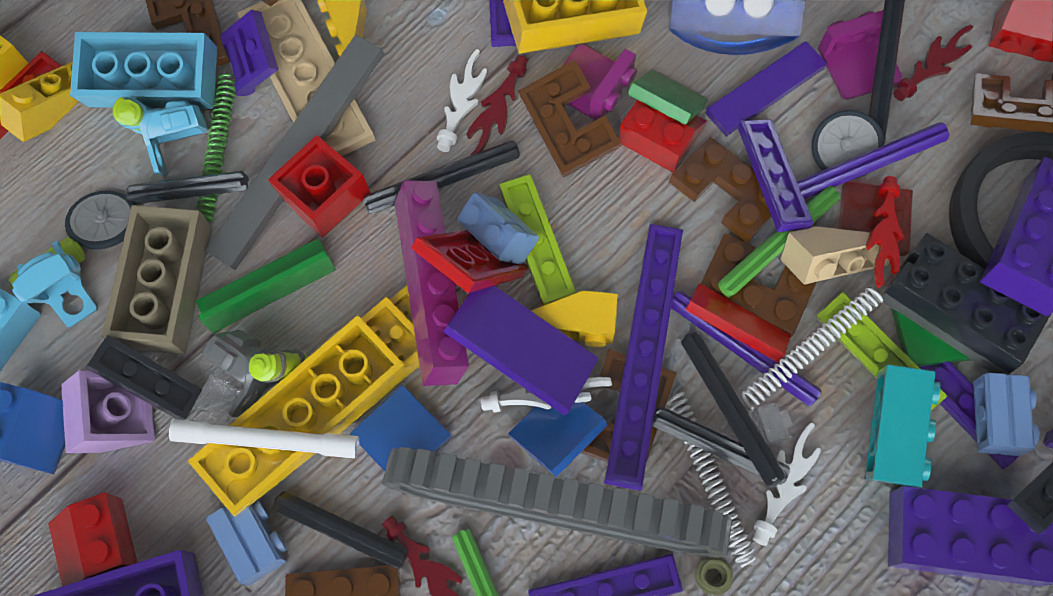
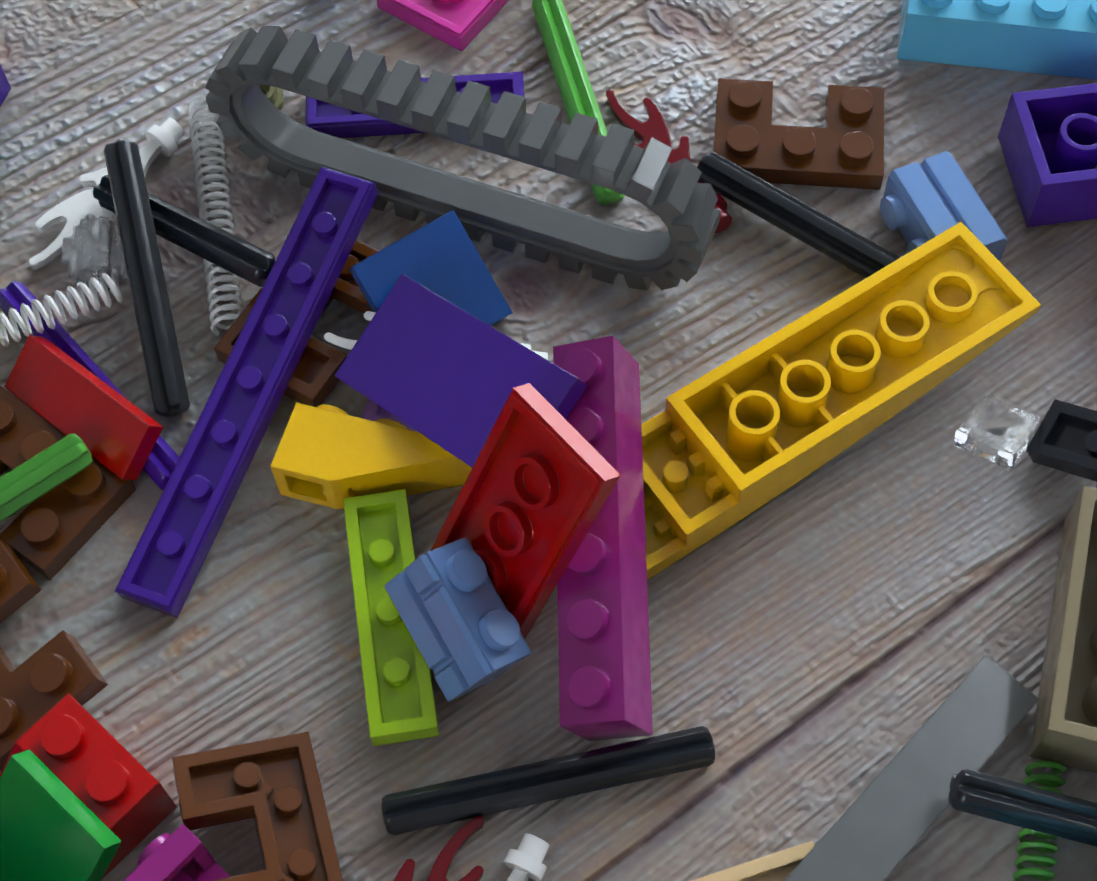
camera: 170 degrees left, 10 degrees down
(204, 432) = (1013, 330): white piece -> none
(250, 364) = (932, 449): dark grey piece -> none
(264, 286) = (914, 612): green panel -> none
(320, 185) = (800, 769): red slope -> none
(397, 424) = (683, 332): blue tile -> none

